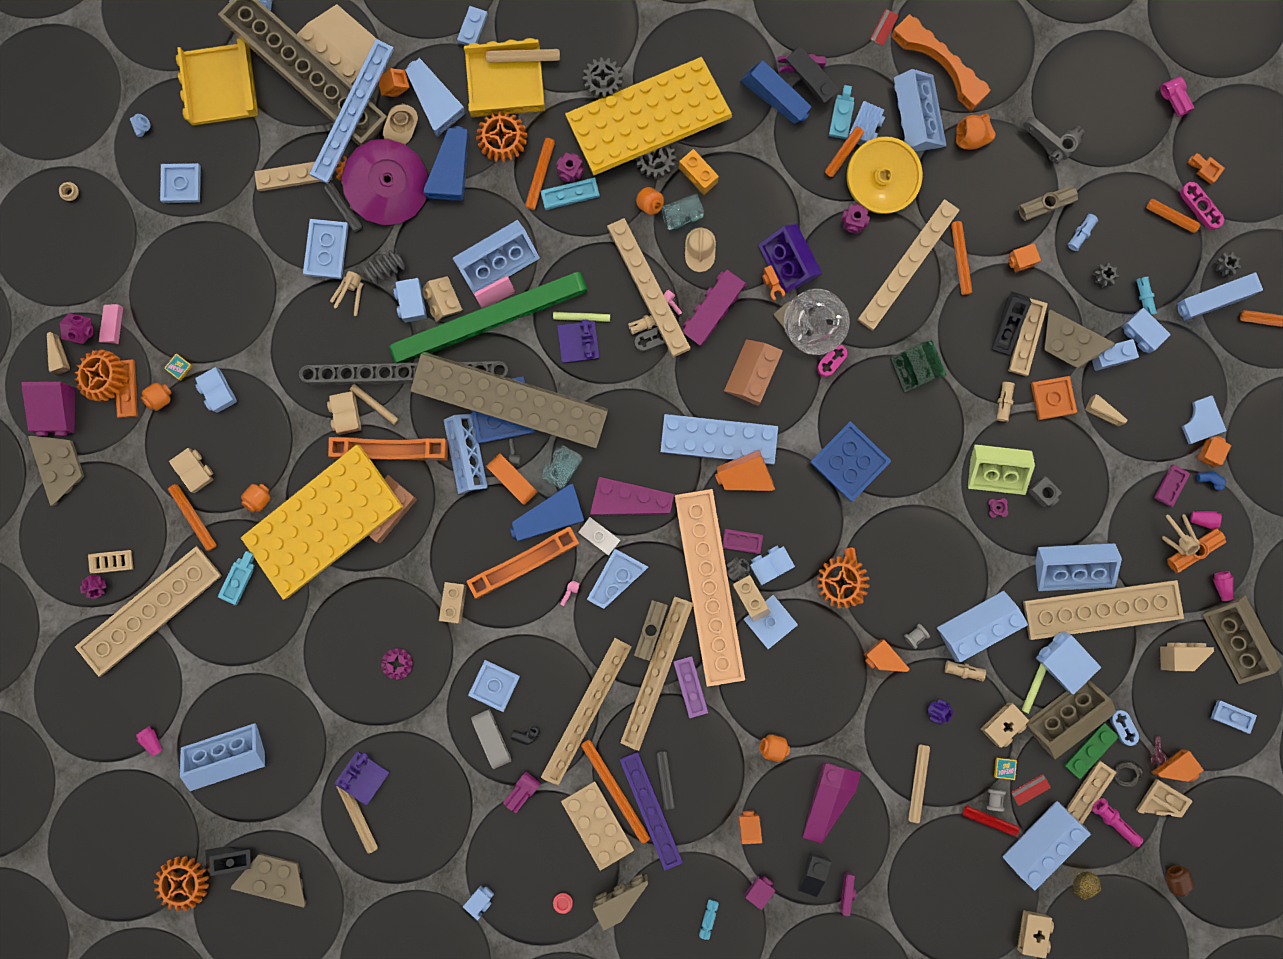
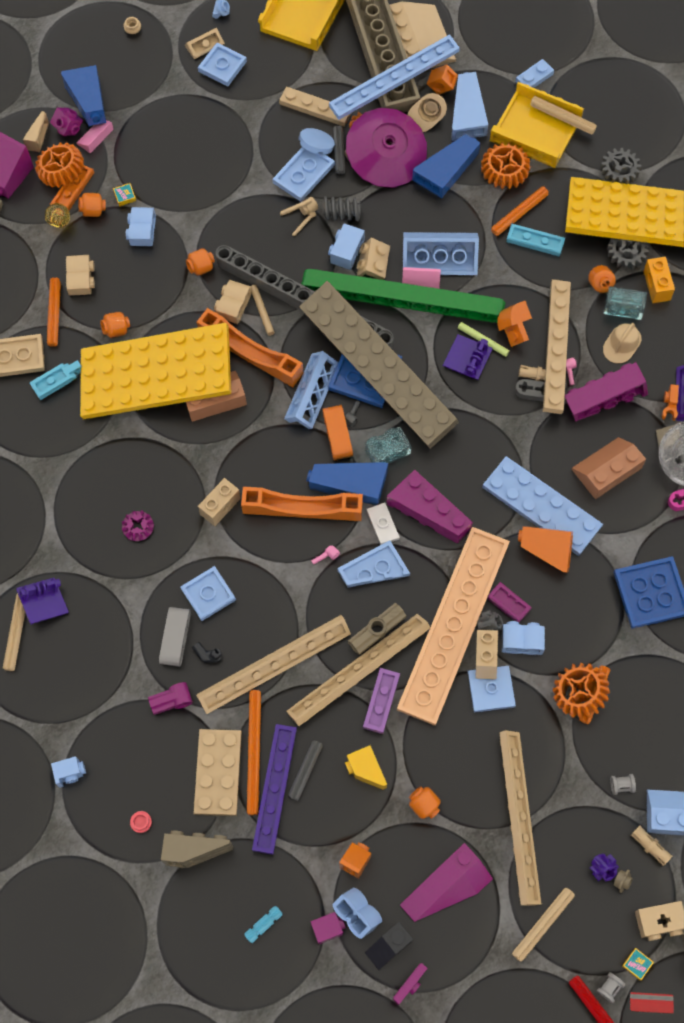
camera: 35 degrees right, 15 degrees down
(75, 288) = (85, 91): none -> blue slope
(132, 425) = (57, 215): none -> clear yellow piece
(149, 170) = (204, 43): none -> tan slope
(291, 393) = (200, 262): none -> orange head
(318, 212) = (316, 141): none -> light blue tile
(570, 173) = (548, 217): magenta brick -> none
(596, 287) = (512, 321): none -> orange brick
(711, 749) = (365, 767): none -> yellow slope
(776, 867) = (357, 912): none -> light blue brick
(854, 713) = (520, 819): none -> tan plate
(884, 658) = (579, 785): orange slope -> none
(959, 712) = (623, 880): none -> dark tan plate

